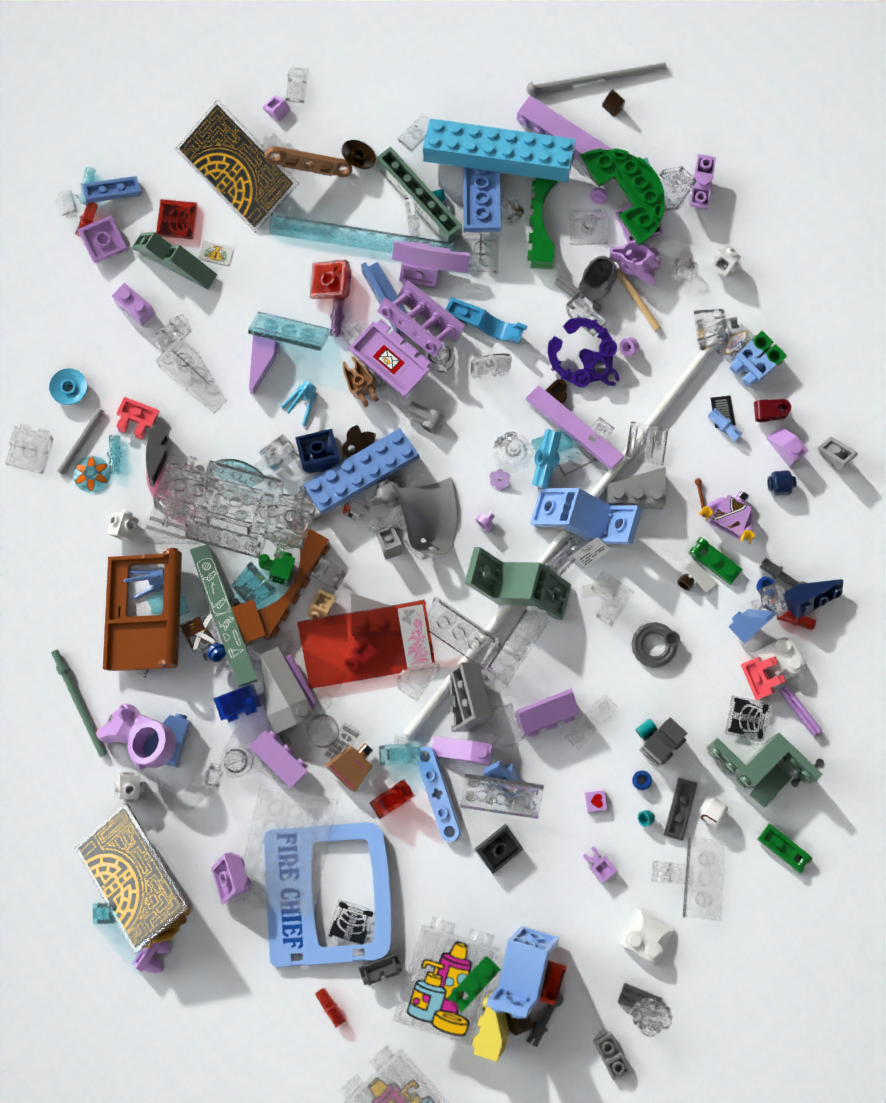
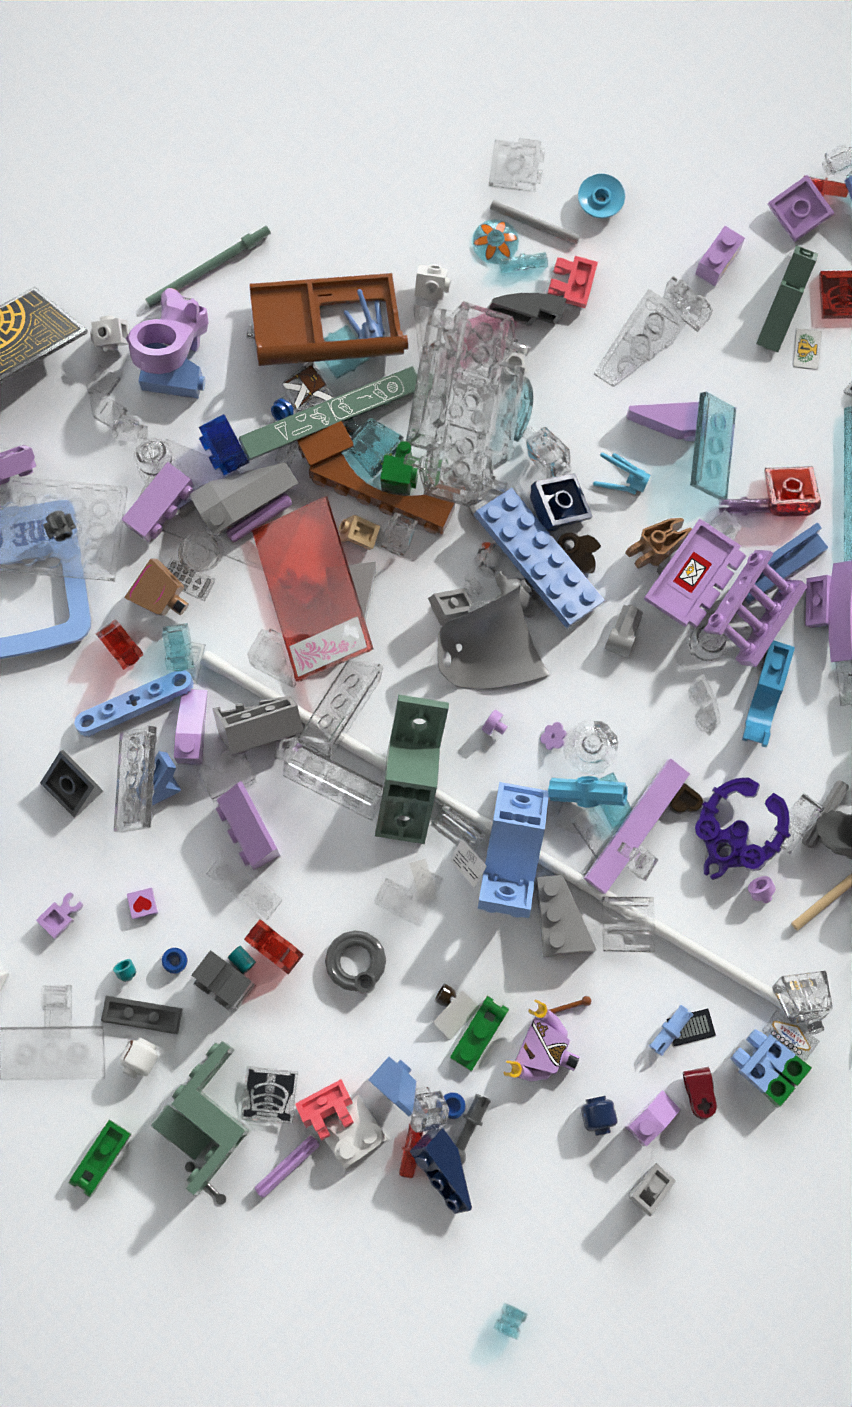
camera: 85 degrees right, 0 degrees up
(292, 837) = (59, 526): none -> dark grey gear
(640, 702) = (273, 946): none -> clear red brick

